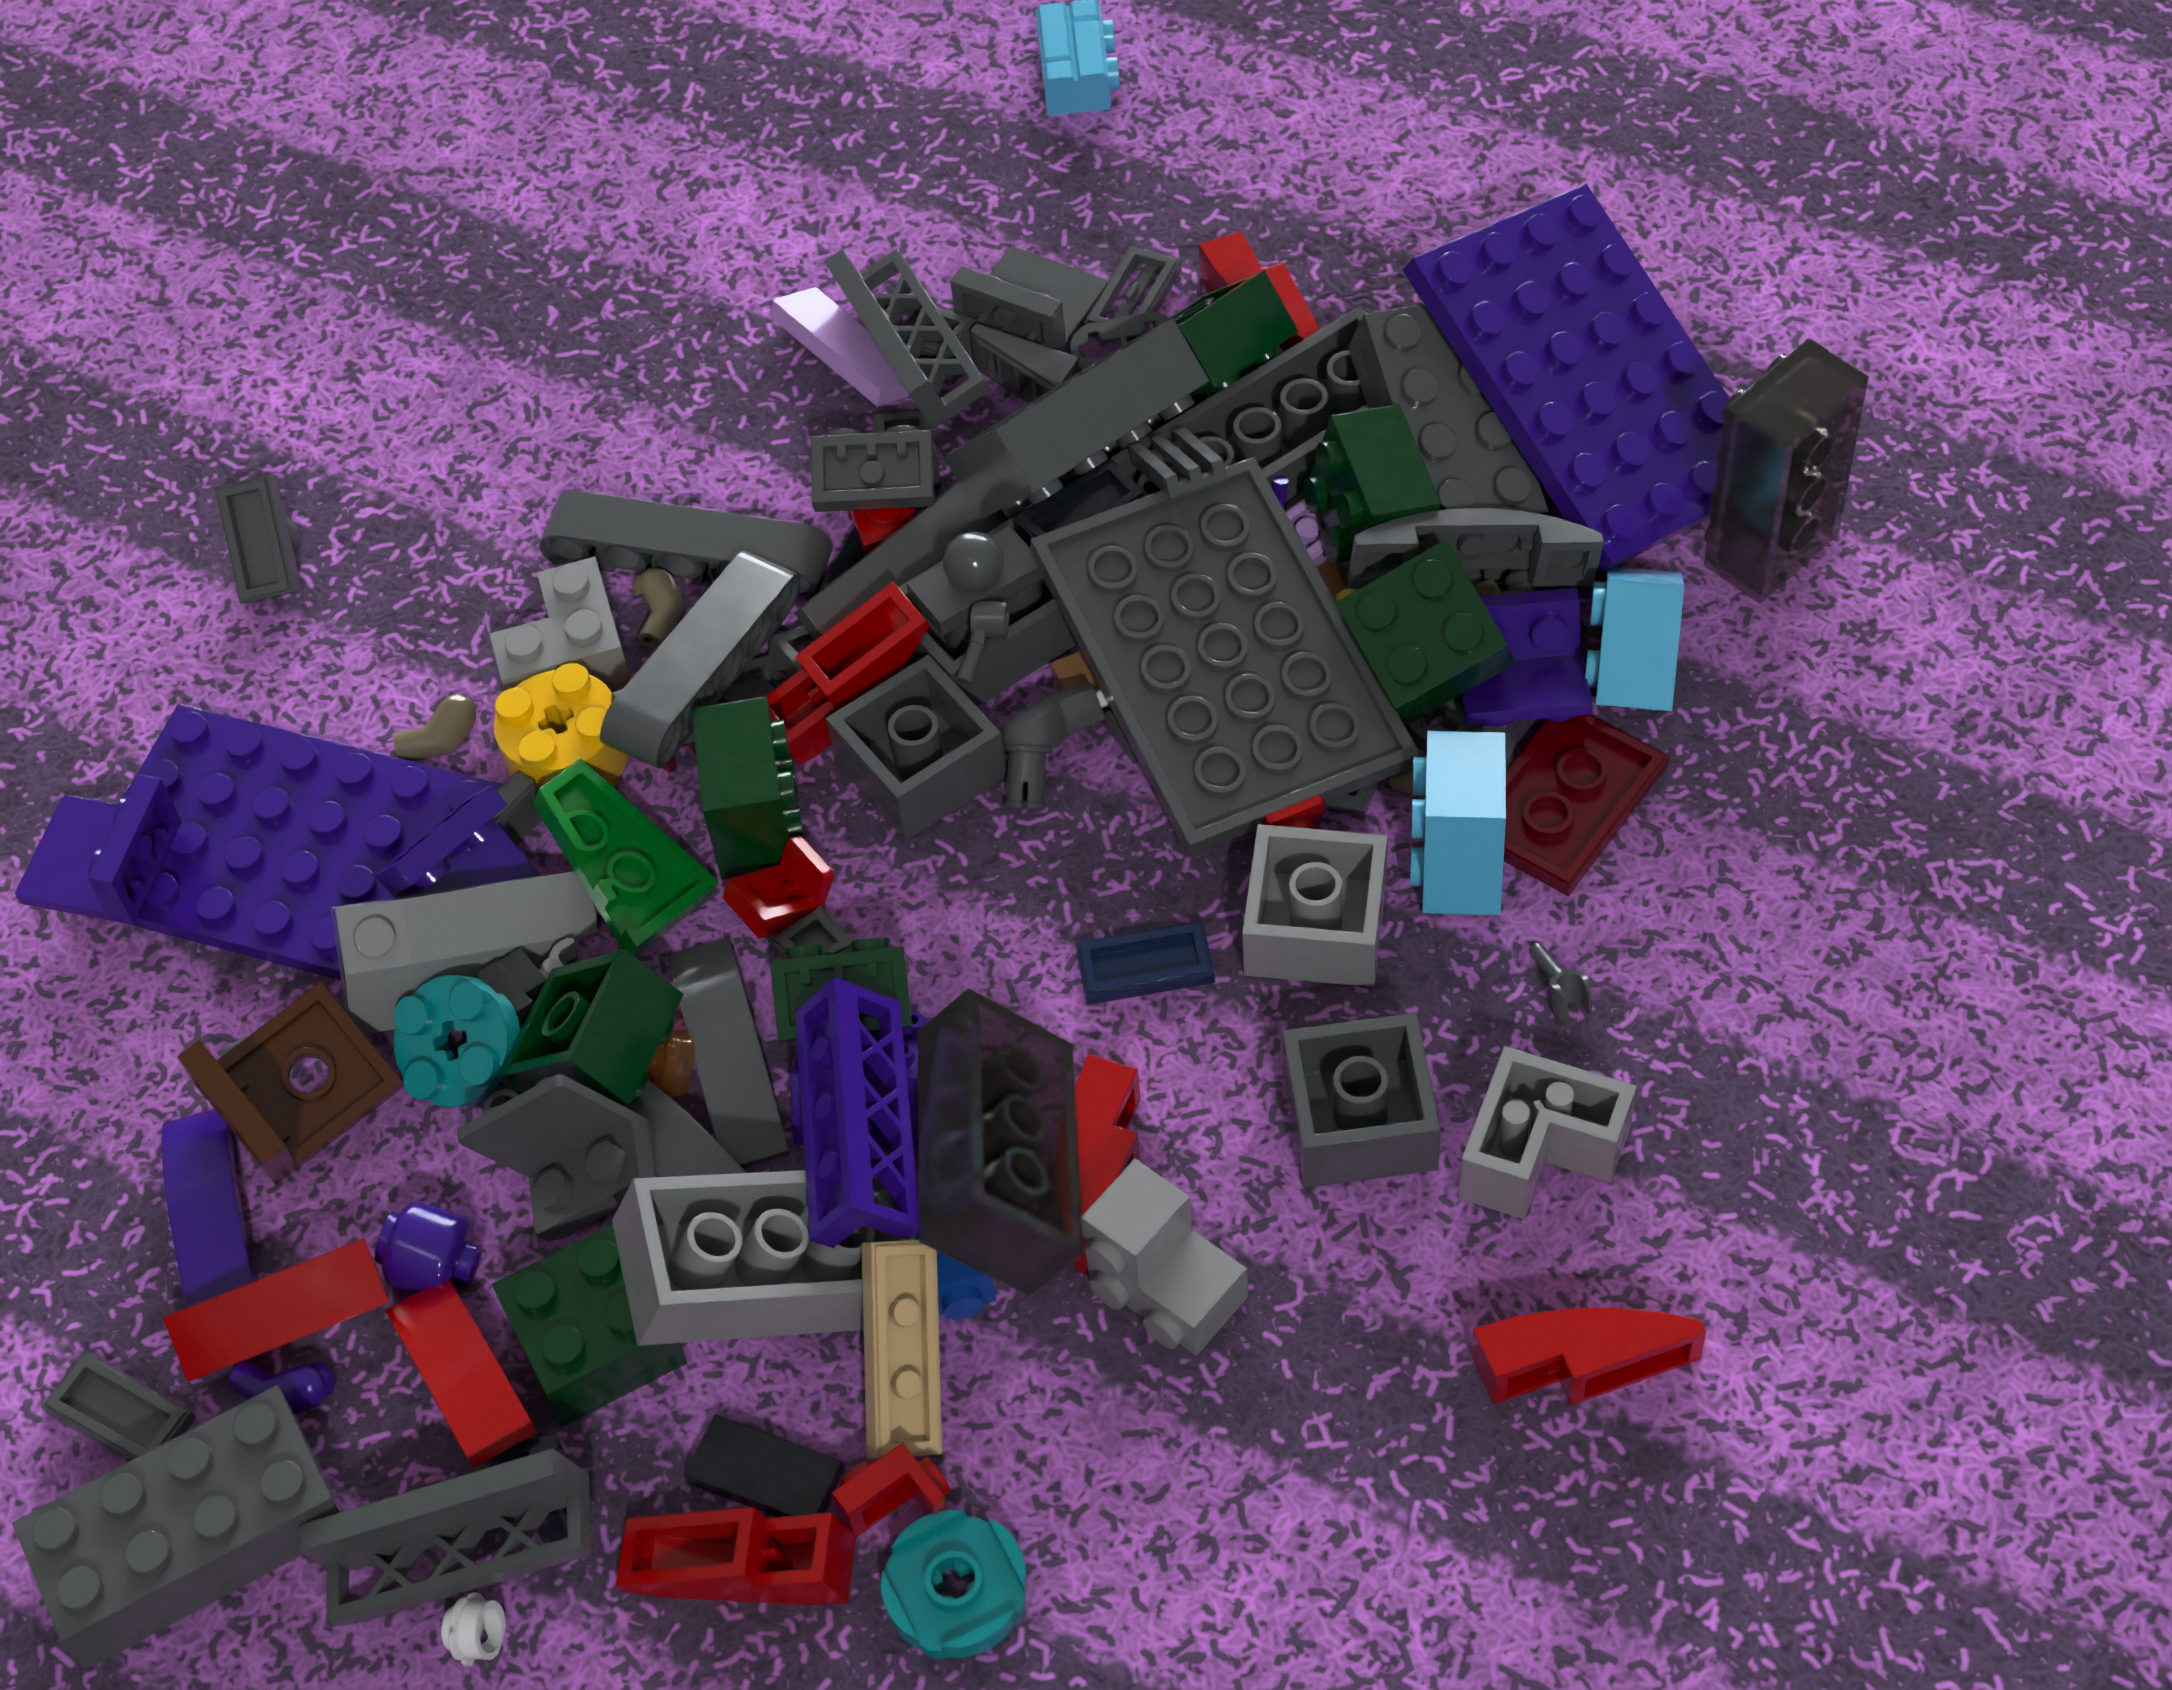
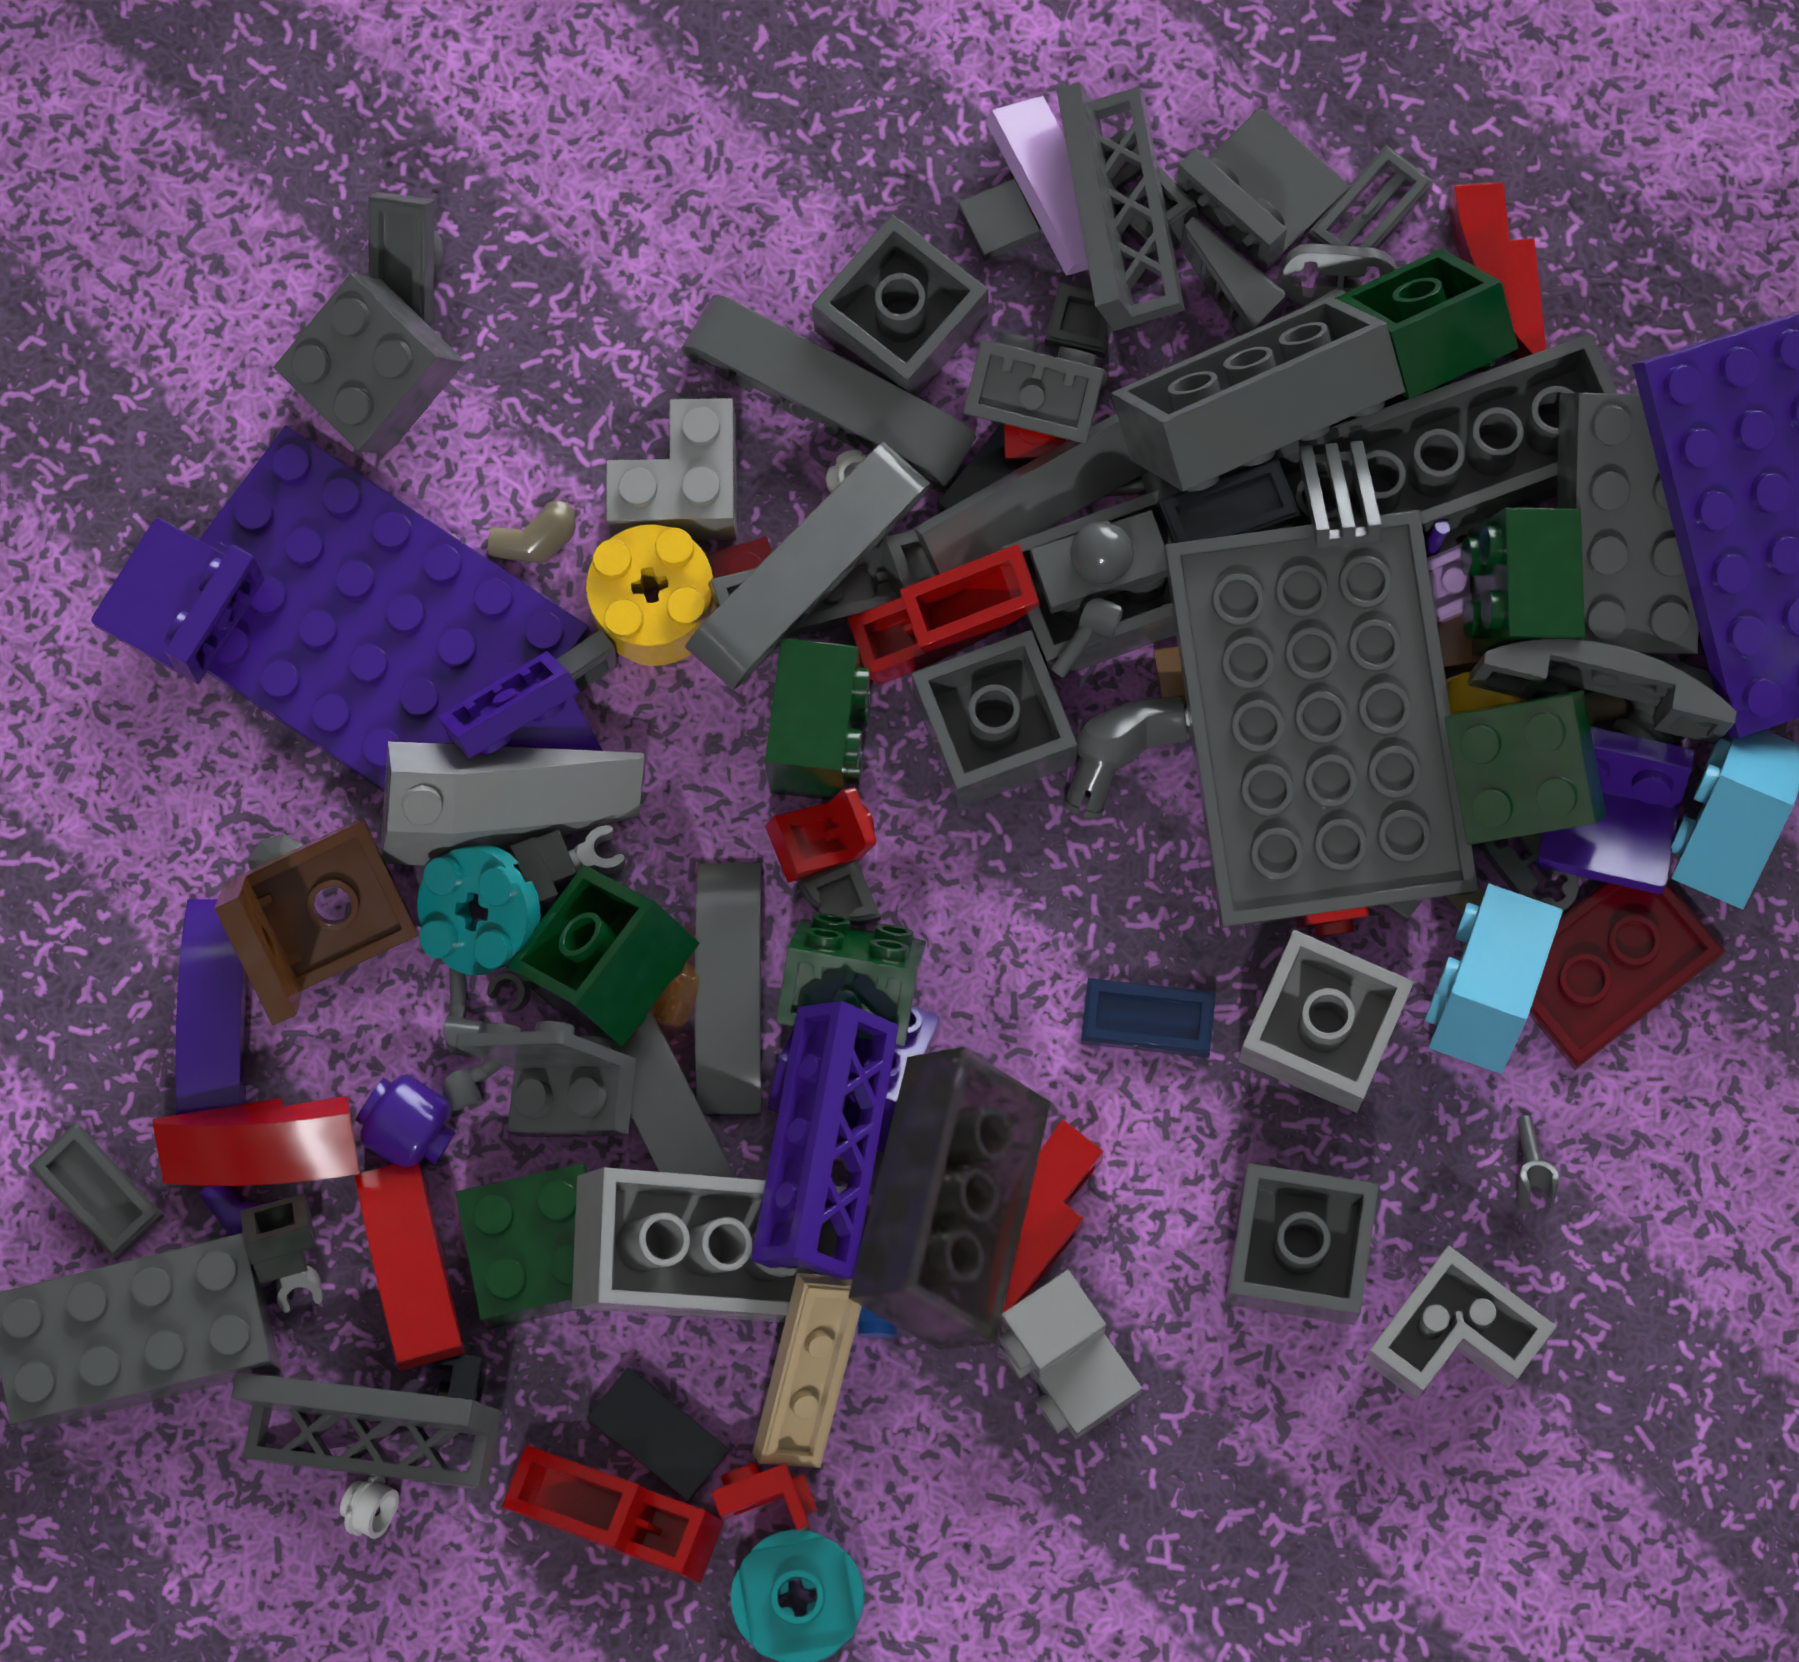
camera: 15 degrees right, 20 degrees up
(245, 623) = (369, 364): none -> dark grey brick
(318, 1396) = (276, 1246): none -> pearl dark grey piece
(461, 1157) = (456, 1021): none -> dark grey hand
(482, 1205) = (461, 1086): none -> dark grey hand
(621, 857) = (678, 756): green wing -> none
(665, 604) = (791, 452): dark tan arm -> none
(733, 454) = (900, 308): none -> dark grey brick
(804, 385) = (999, 219): none -> dark grey tile
(1582, 1350) = (1421, 1555): red slope -> none

